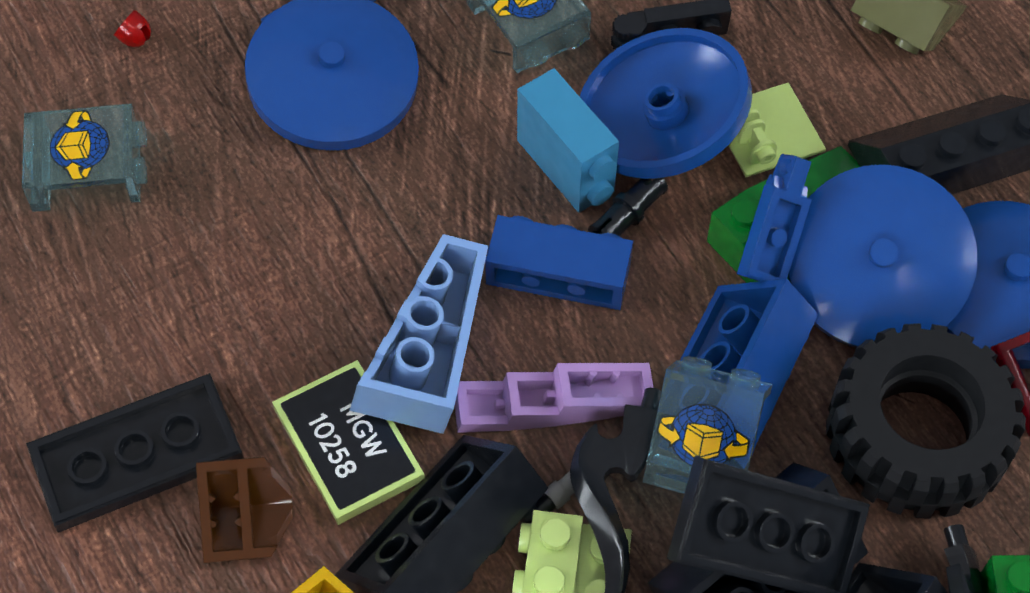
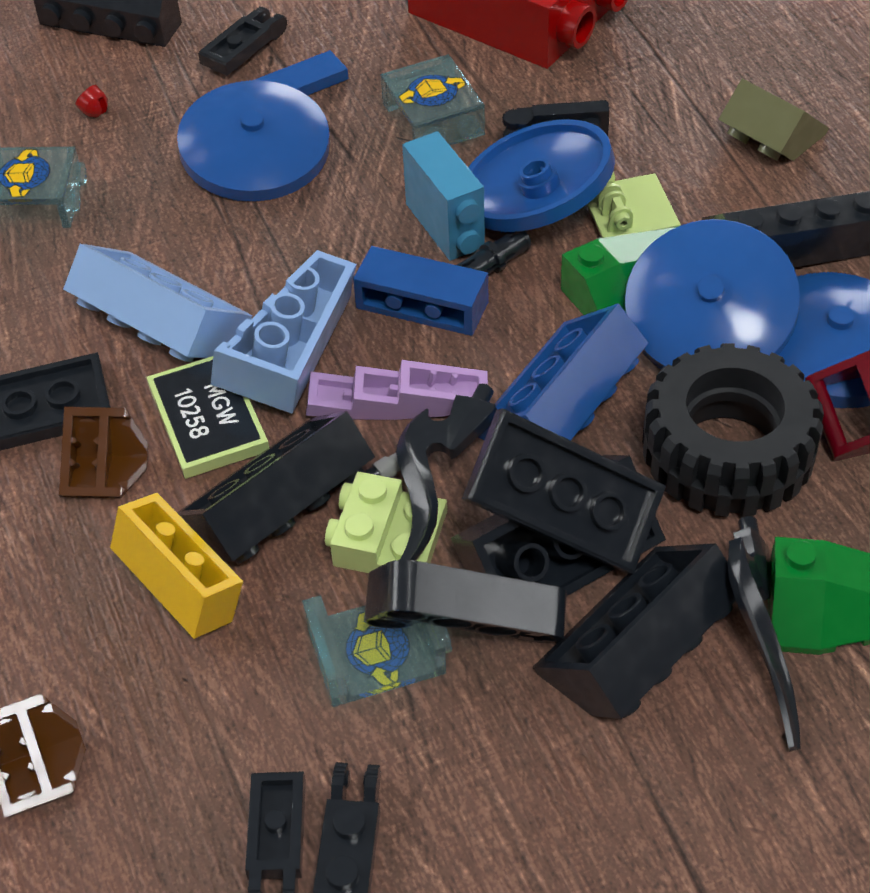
camera: 10 degrees right, 10 degrees down
(262, 302) = (152, 301): none -> light blue slope
(705, 417) = (523, 389): clear light blue panel -> none
(777, 222) = (617, 259): blue hinge -> none

